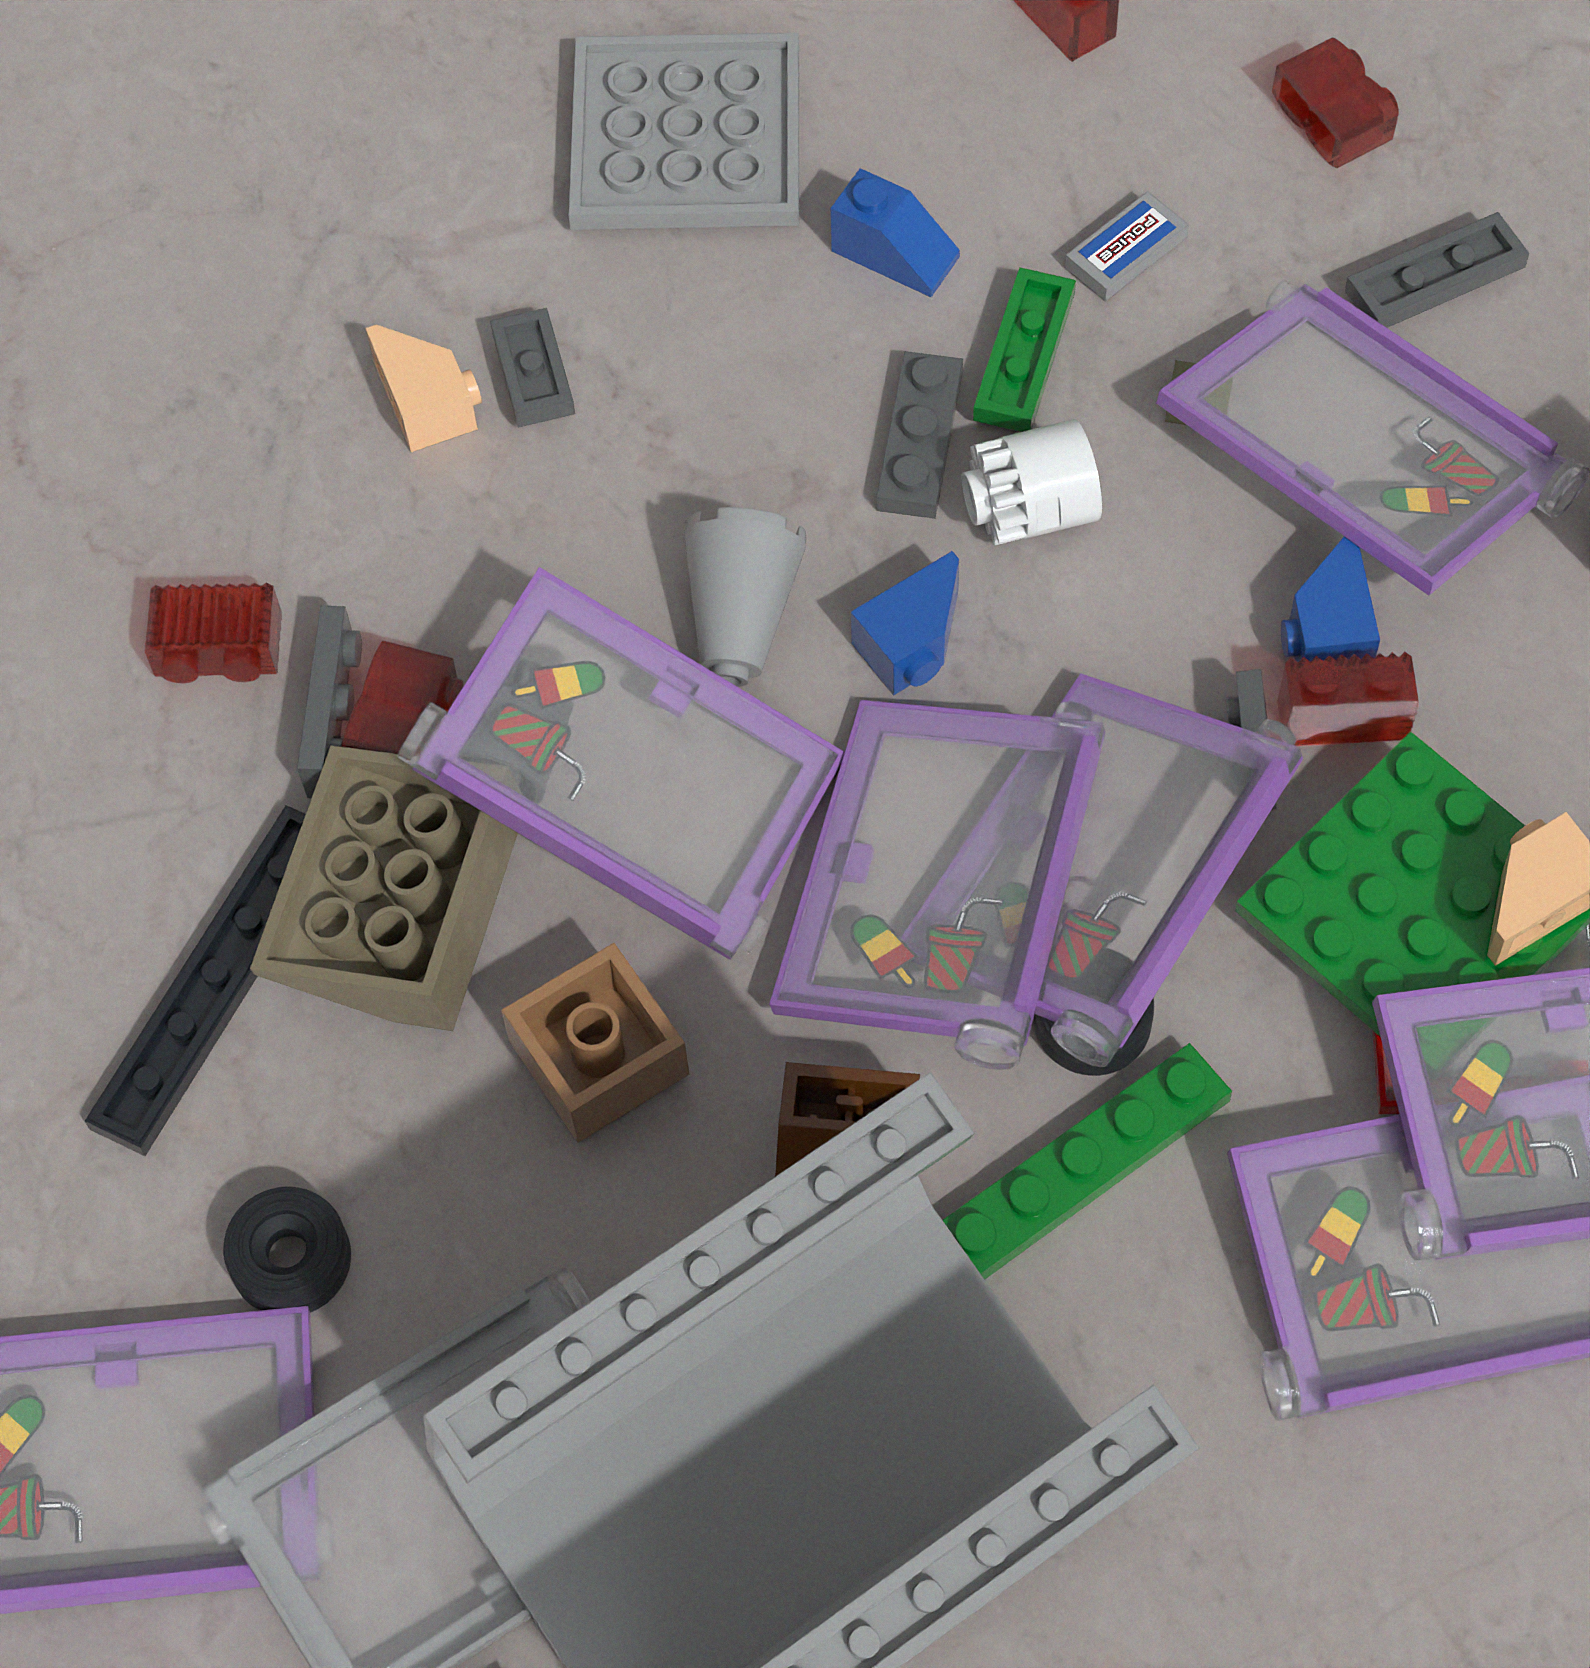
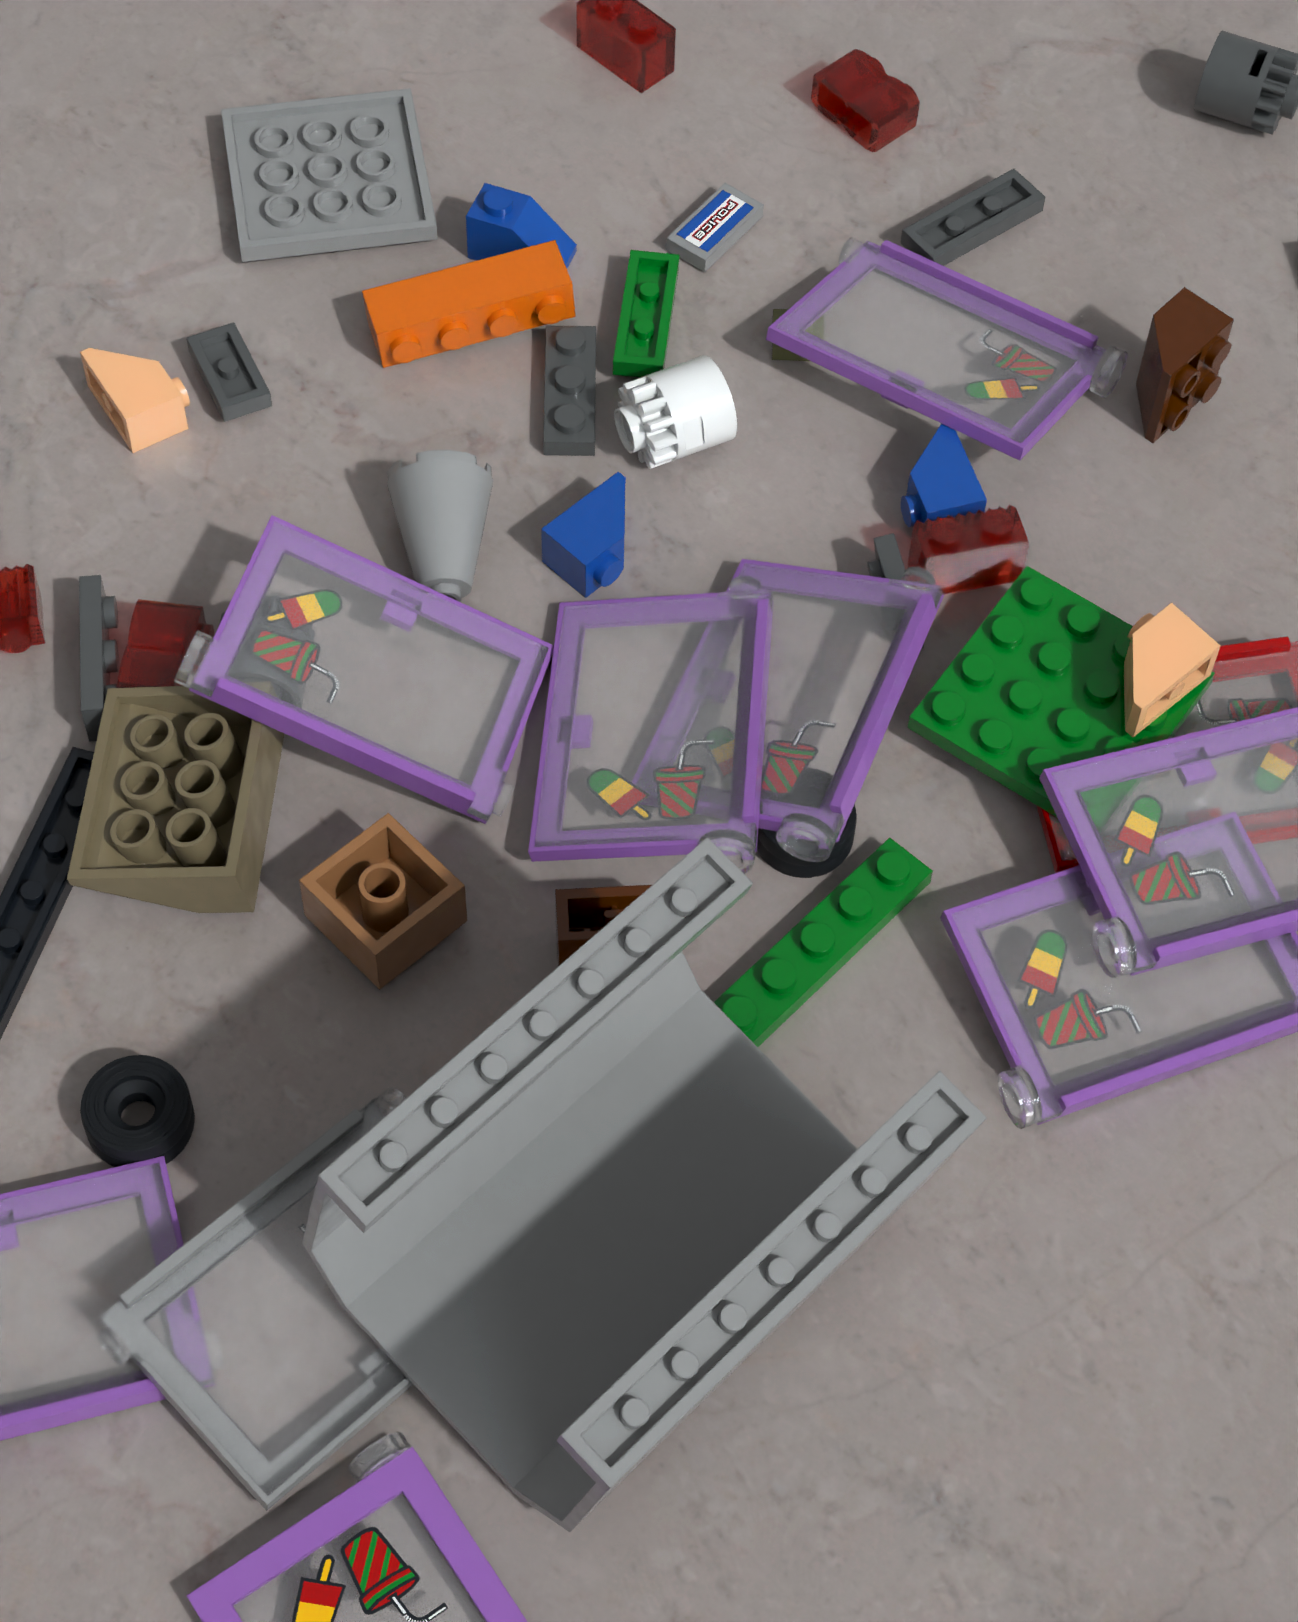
camera: 15 degrees left, 5 degrees down
(819, 315) = (469, 303): none -> orange brick

